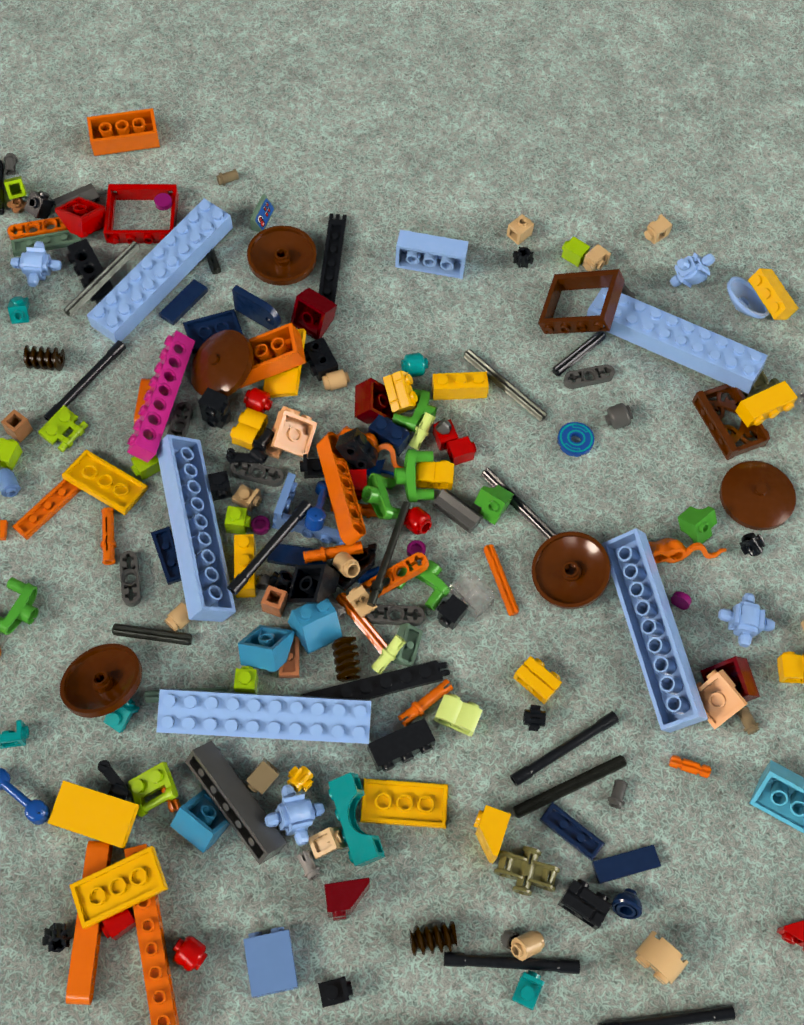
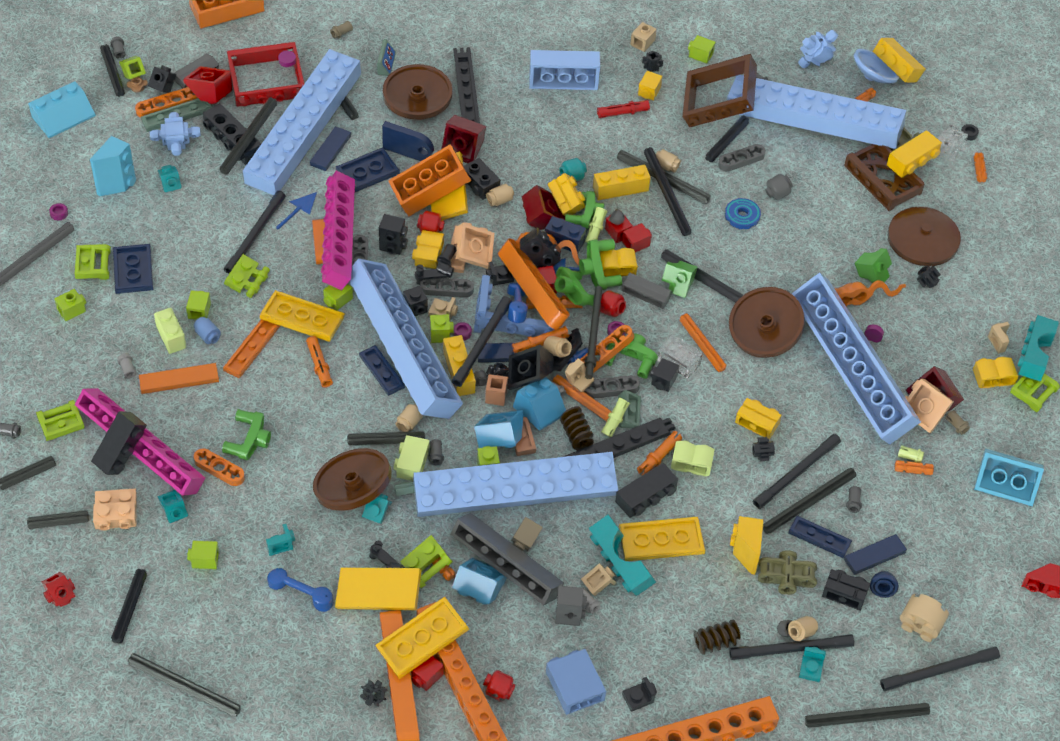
camera: 10 degrees left, 10 degrees down
(17, 426) = (202, 278): medium nougat brick -> none
(42, 359) = (208, 216): dark brown piece -> none
(124, 572) = (349, 402): dark grey beam -> none
(142, 357) = (304, 203): none -> blue piece
(170, 664) = (412, 457): none -> yellowish green brick
(196, 664) = (436, 456): none -> dark grey pin
(222, 363) = (390, 190): reddish brown dish -> none
(285, 873) = (570, 605): none -> dark grey brick
(294, 814) = (565, 559): light blue piece -> none
(300, 778) = (561, 531): yellow gear -> none
(344, 897) = (628, 614): dark red slope -> none
(482, 304) = (630, 107): none -> red pin
(504, 404) = (667, 191): none -> black axle
(512, 368) = (668, 160): none -> tan brick
(514, 283) = (650, 85): none -> yellow brick
(596, 258) = (723, 51): tan brick -> none
(658, 229) = (776, 19): tan brick -> none
(690, 750) = (911, 454): none -> yellowish green pin
(729, 328) = (866, 96): none -> orange axle
(746, 620) = (937, 339): light blue piece -> none

